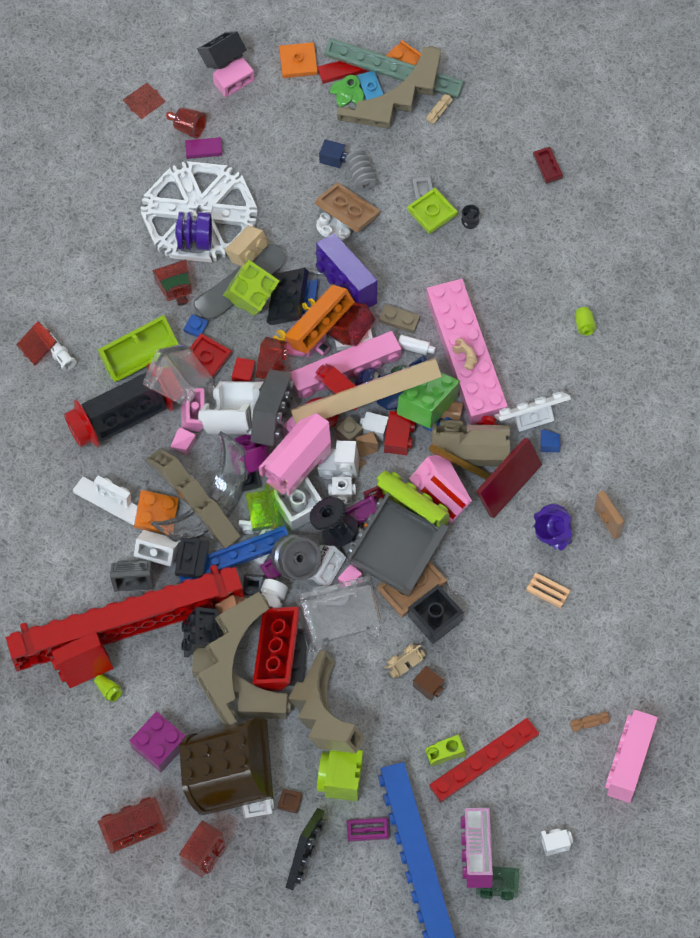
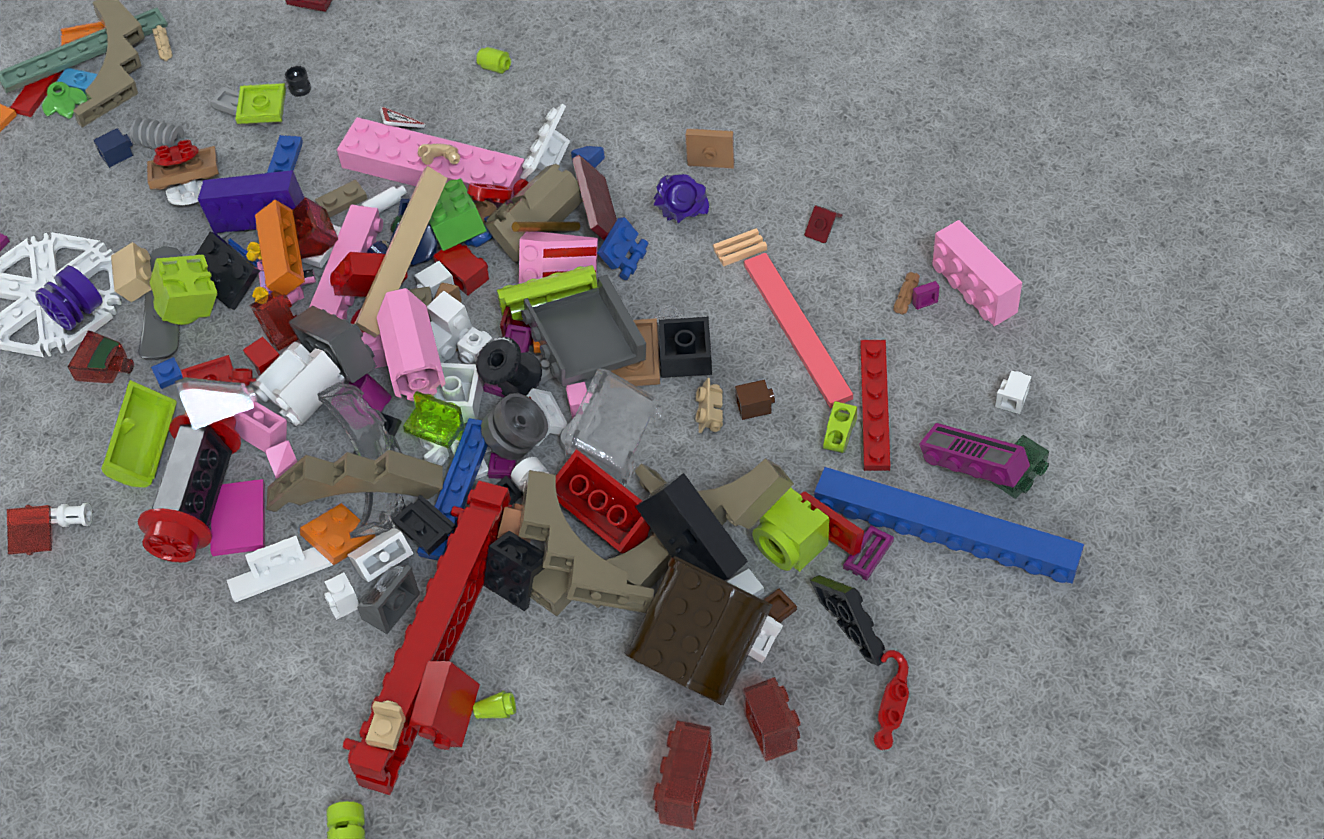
camera: 50 degrees left, 10 degrees down
(38, 640) = (386, 725): none -> tan bracket
(116, 547) = (340, 596): none -> white brick
(128, 449) = (239, 518): none -> dark pink tile
(157, 741) = (605, 691): magenta brick -> none
(218, 372) = (242, 375): none -> red plate
(270, 912) = (893, 702): none -> red piece
(287, 716) = (690, 528): none -> black brick
(289, 772) = (747, 582): none -> white tile
(350, 196) = (176, 154): none -> red dish
(366, 792) = (841, 530): none -> red plate
(402, 260) = (285, 154): none -> blue plate
(457, 407) = (482, 191): none -> red plate
(485, 514) = (618, 243): none -> blue plate
(486, 302) = (396, 119): none -> piece
(508, 672) = (798, 330): none -> coral tile
(594, 735) = (925, 295): none -> magenta tile
(608, 627) = (821, 223): none -> dark red bracket

